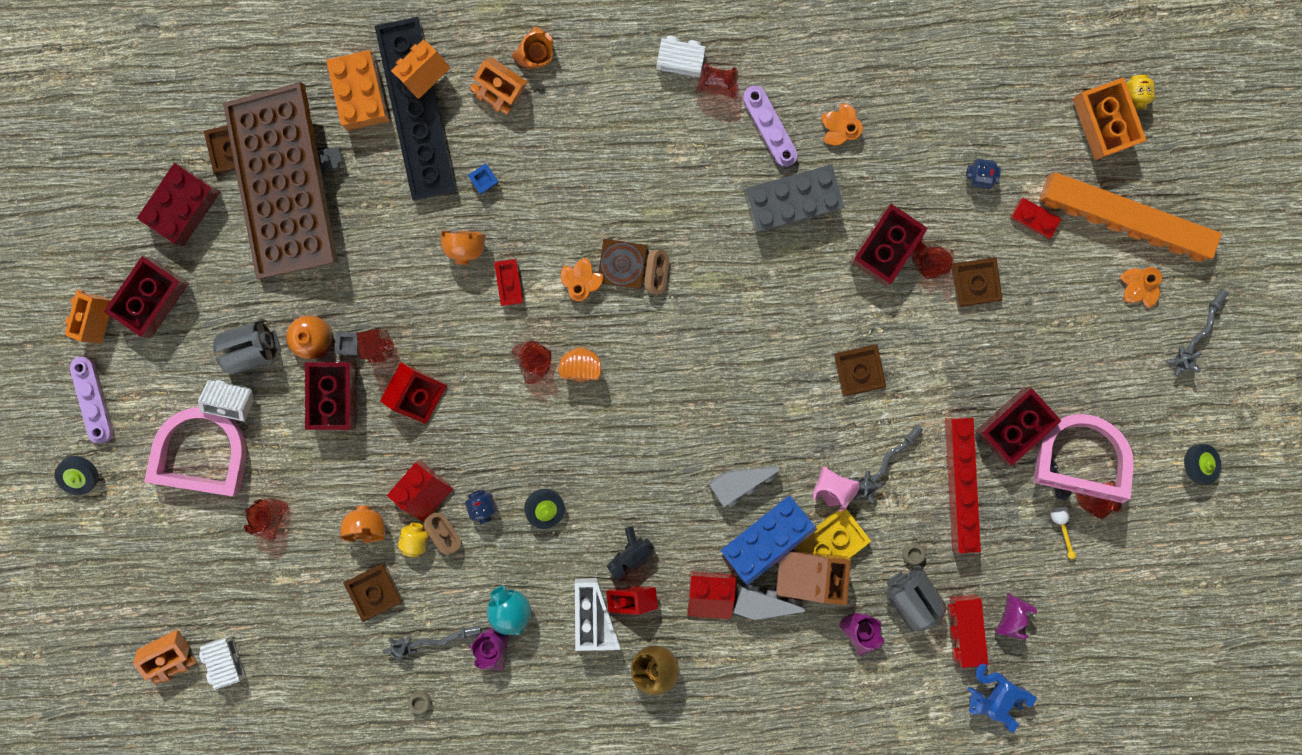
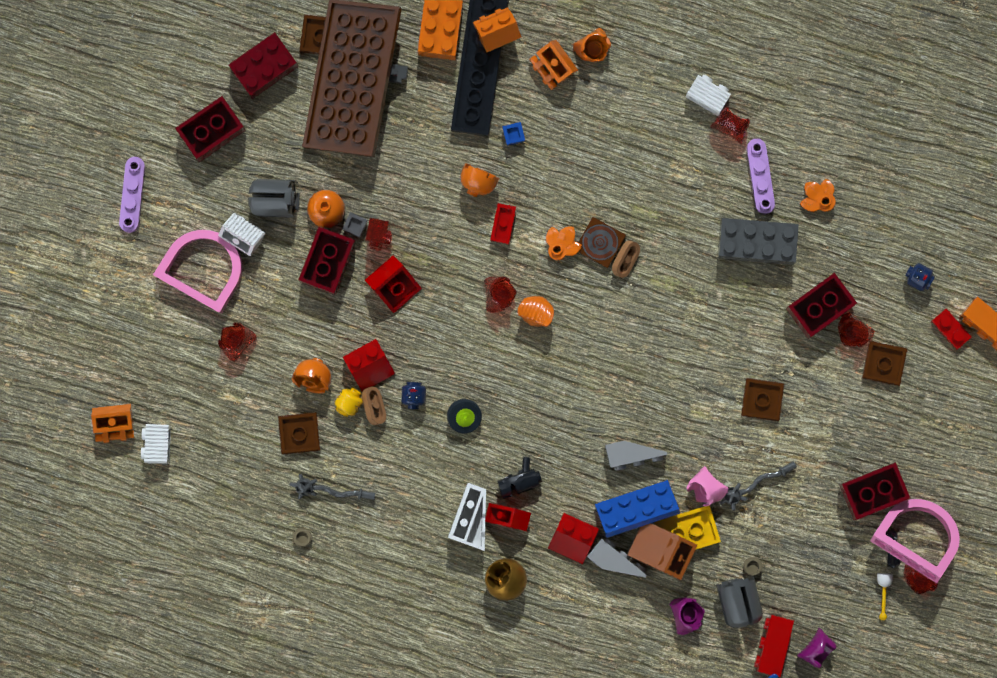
camera: 20 degrees right, 5 degrees down
(76, 475) = (98, 250): black wheel -> none
(86, 318) = (156, 127): orange brick -> none
(490, 650) = (377, 515): magenta hair -> none
(508, 611) = (404, 487): teal brick -> none
(962, 484) = (812, 522): red brick -> none

